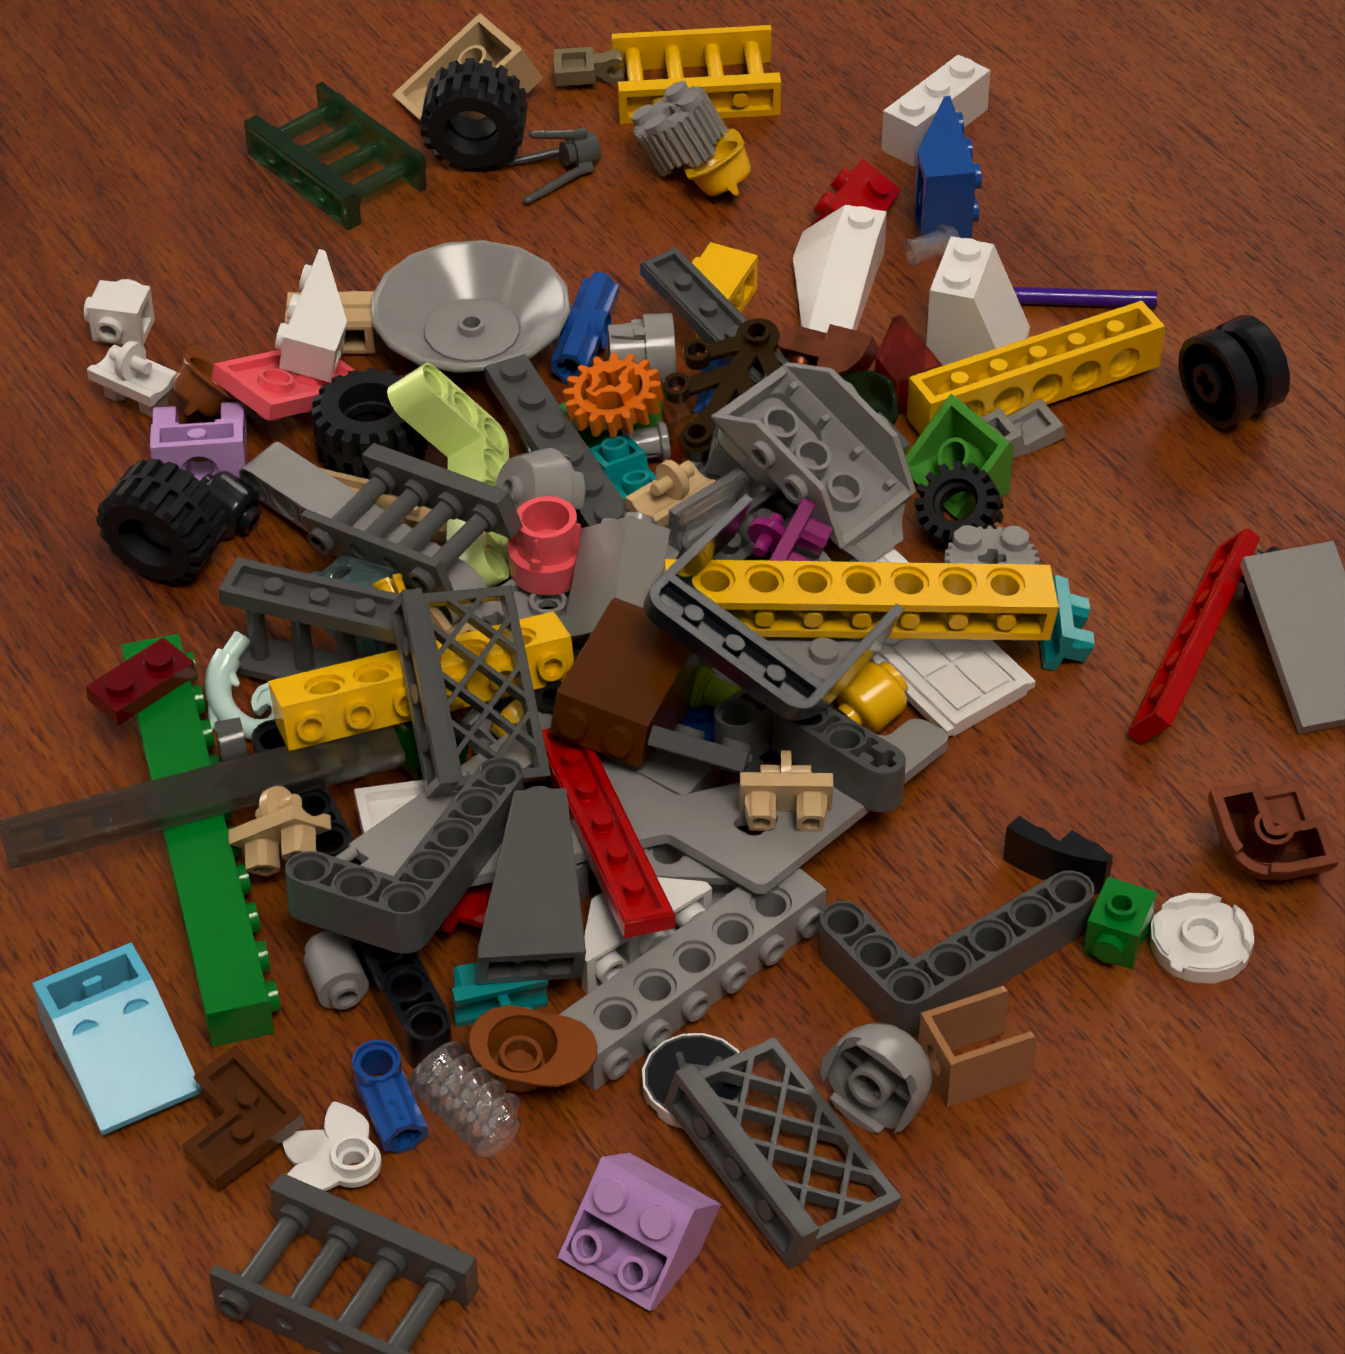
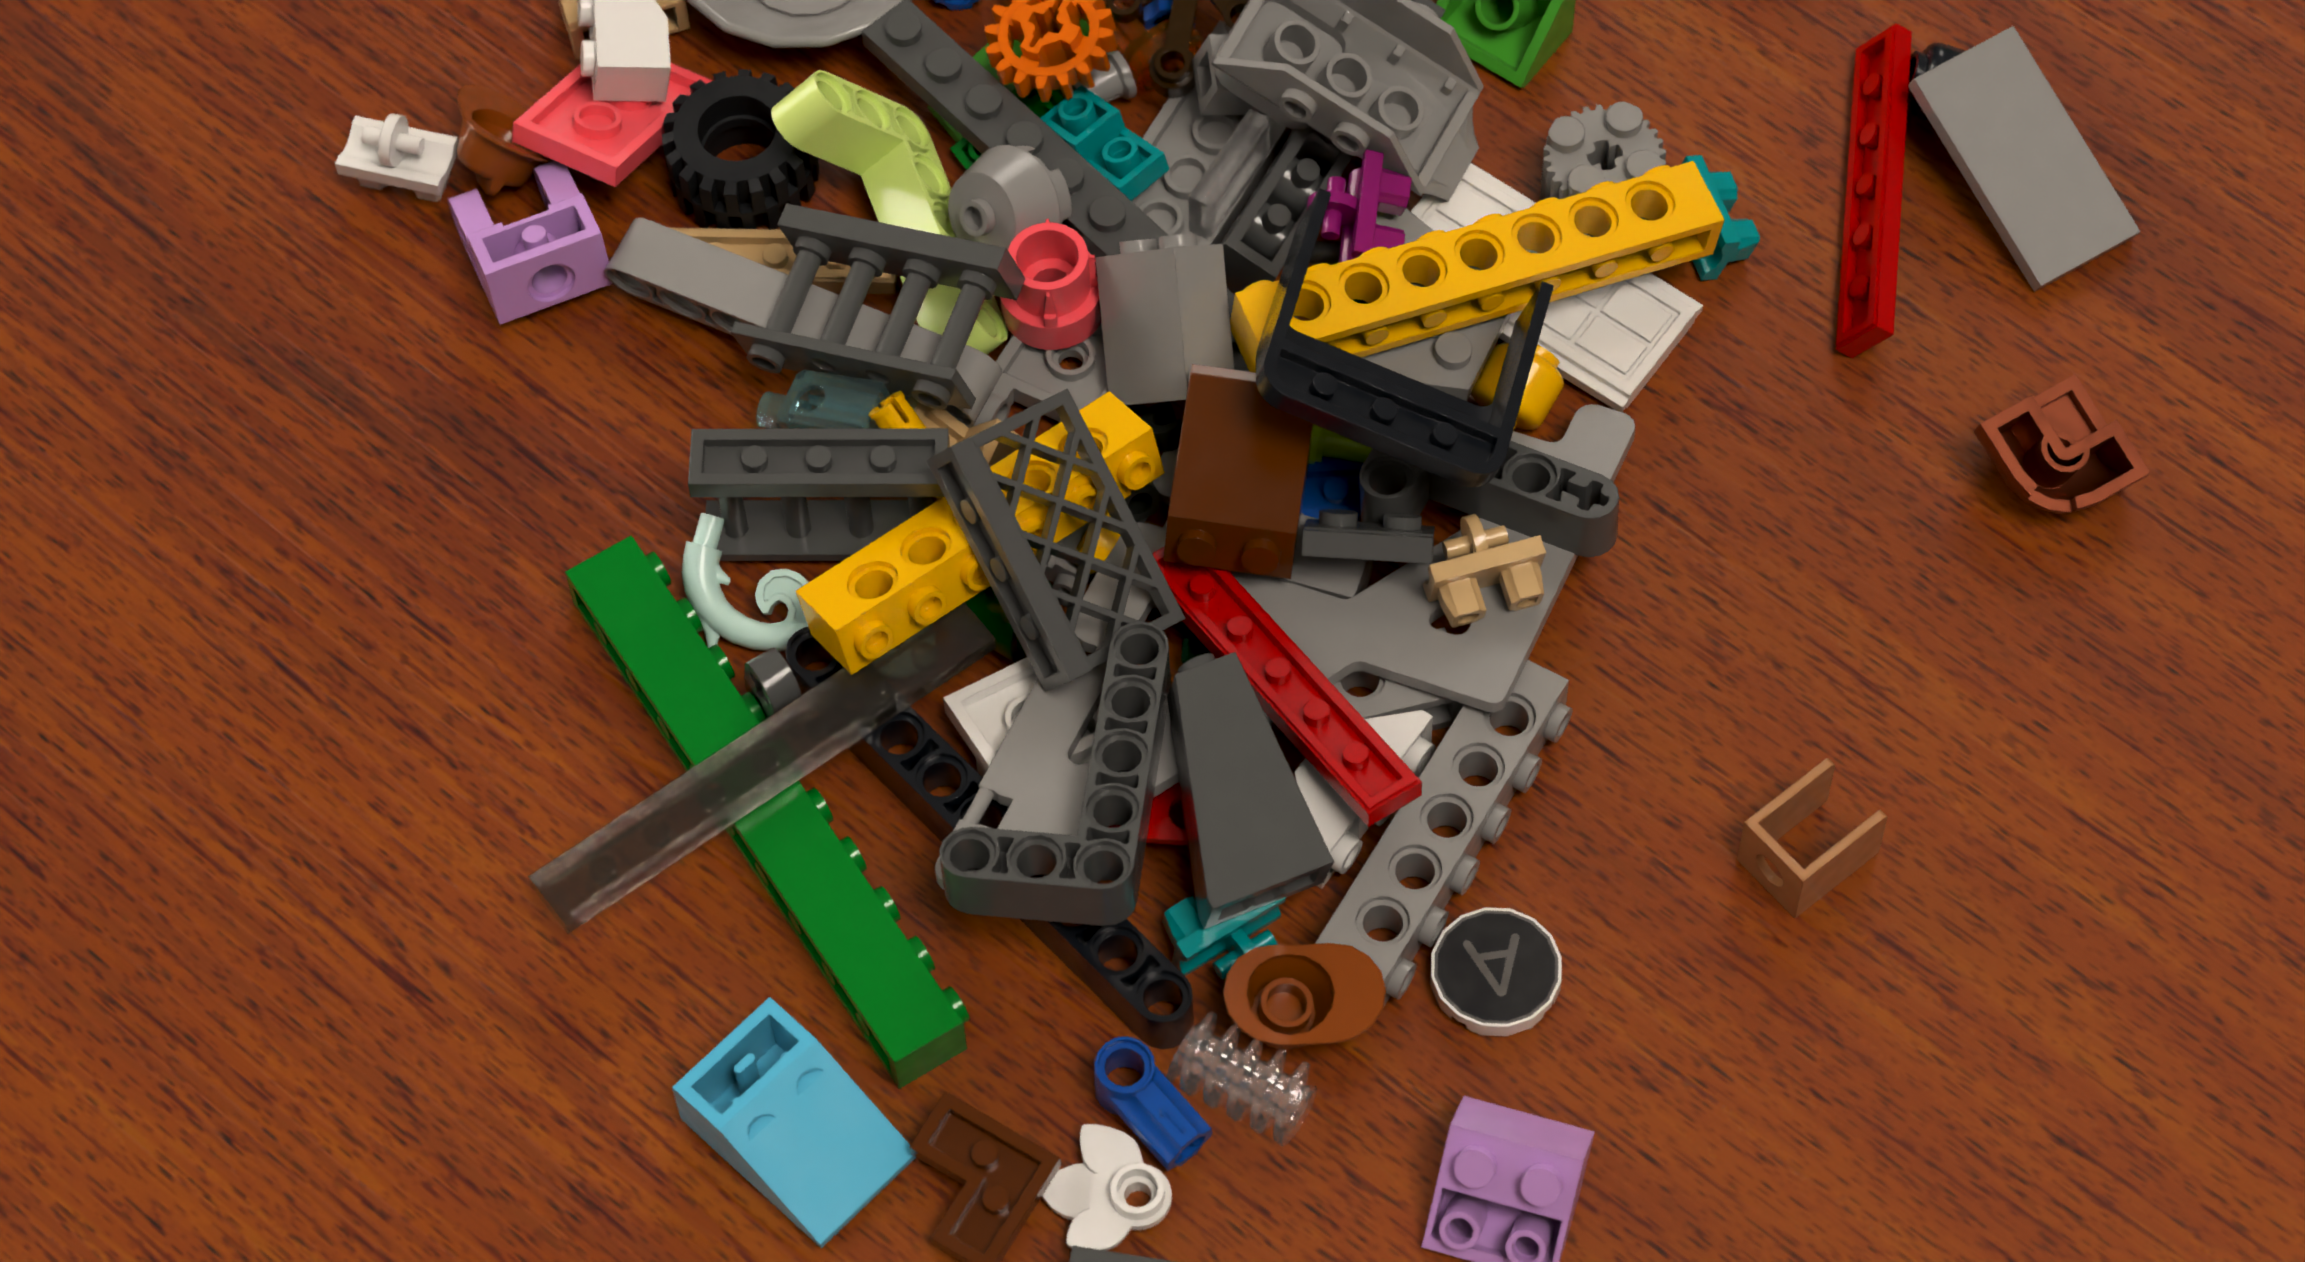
camera: 15 degrees left, 15 degrees up
(120, 312) = (333, 57): white brick -> none
(140, 681) = (617, 621): dark red plate -> none
(162, 521) = (543, 378): black tyre -> none
(237, 500) = (601, 319): black head -> none
(278, 826) = (907, 784): tan hips -> none
(335, 970) = (1016, 954): light grey brick -> none
(670, 488) = (1174, 169): tan hips -> none
(742, 1160) = (1611, 1079): dark grey fence -> none
(878, 1077) = (1718, 914): light grey cylinder -> none
(946, 485) = (1522, 45): black tyre -> none
(961, 966) = (1750, 723): dark grey beam -> none
(1042, 856) = (1839, 555): black slope -> none
(1119, 923) = (1919, 621): green brick -> none
(1201, 938) = (2013, 610): white tile -> none

